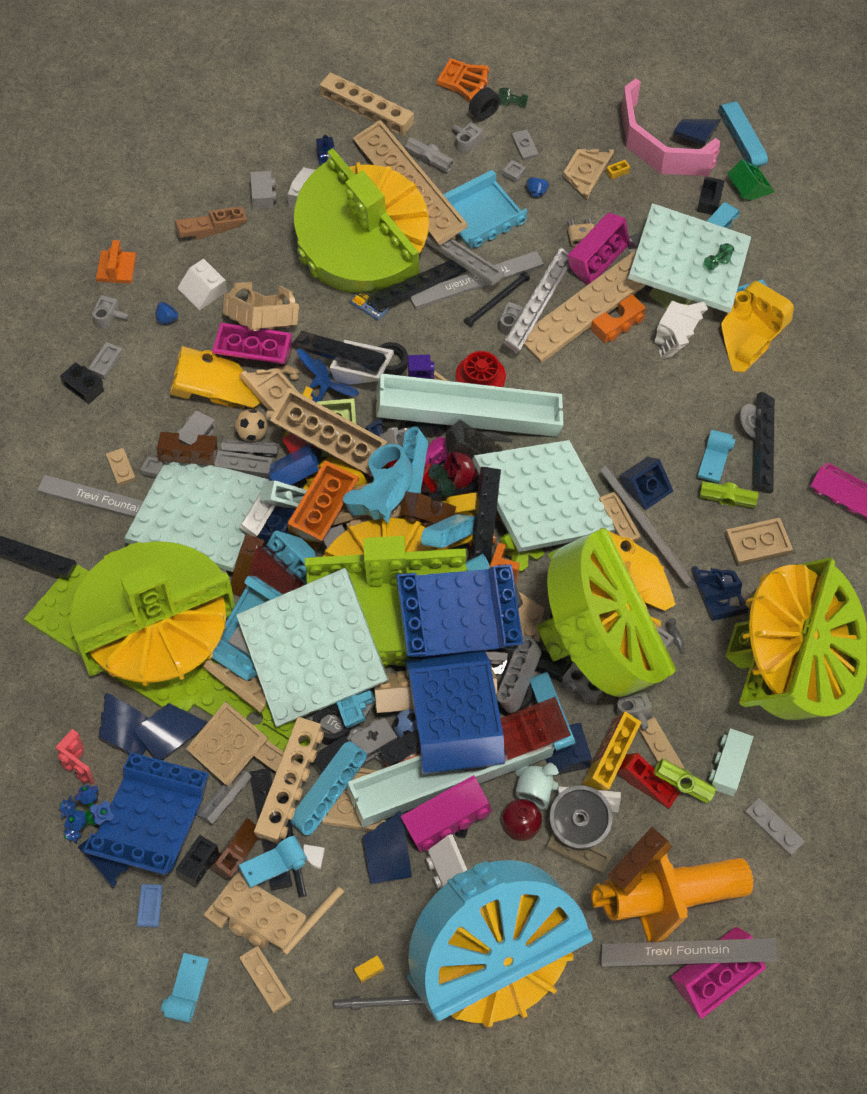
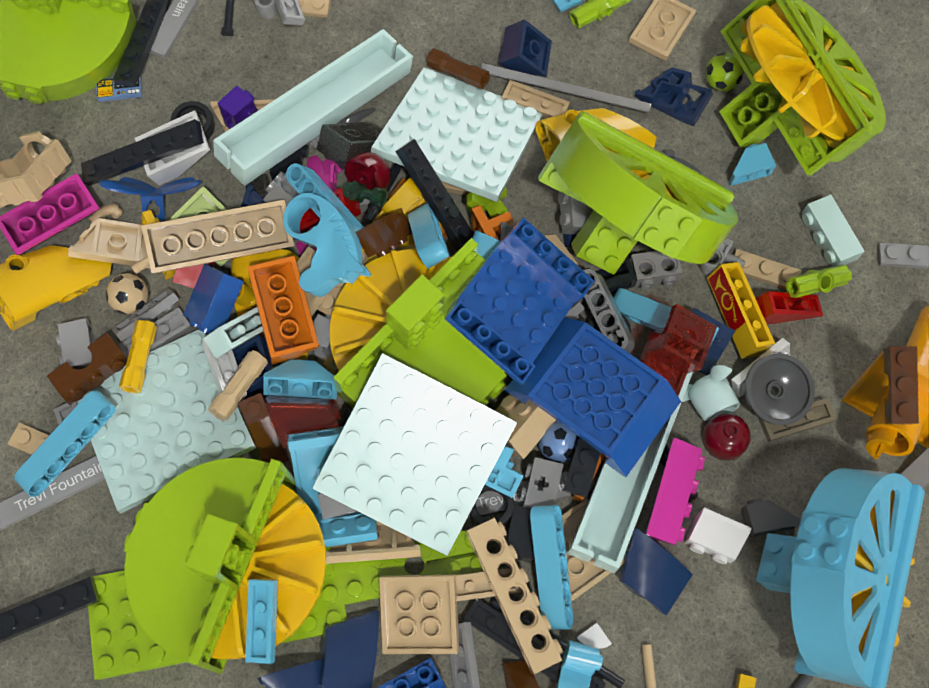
camera: 45 degrees left, 10 degrees up
(134, 477) = (64, 443): none -> medium azure beam
(134, 654) = (261, 621): none -> medium azure plate
(209, 471) = (133, 373): none -> yellow axle
(255, 524) = (228, 399): none -> tan axle
(481, 369) = (284, 68): red piece -> none
(591, 466) = (470, 74): none -> reddish brown axle
(721, 674) = (754, 164): none -> medium azure slope

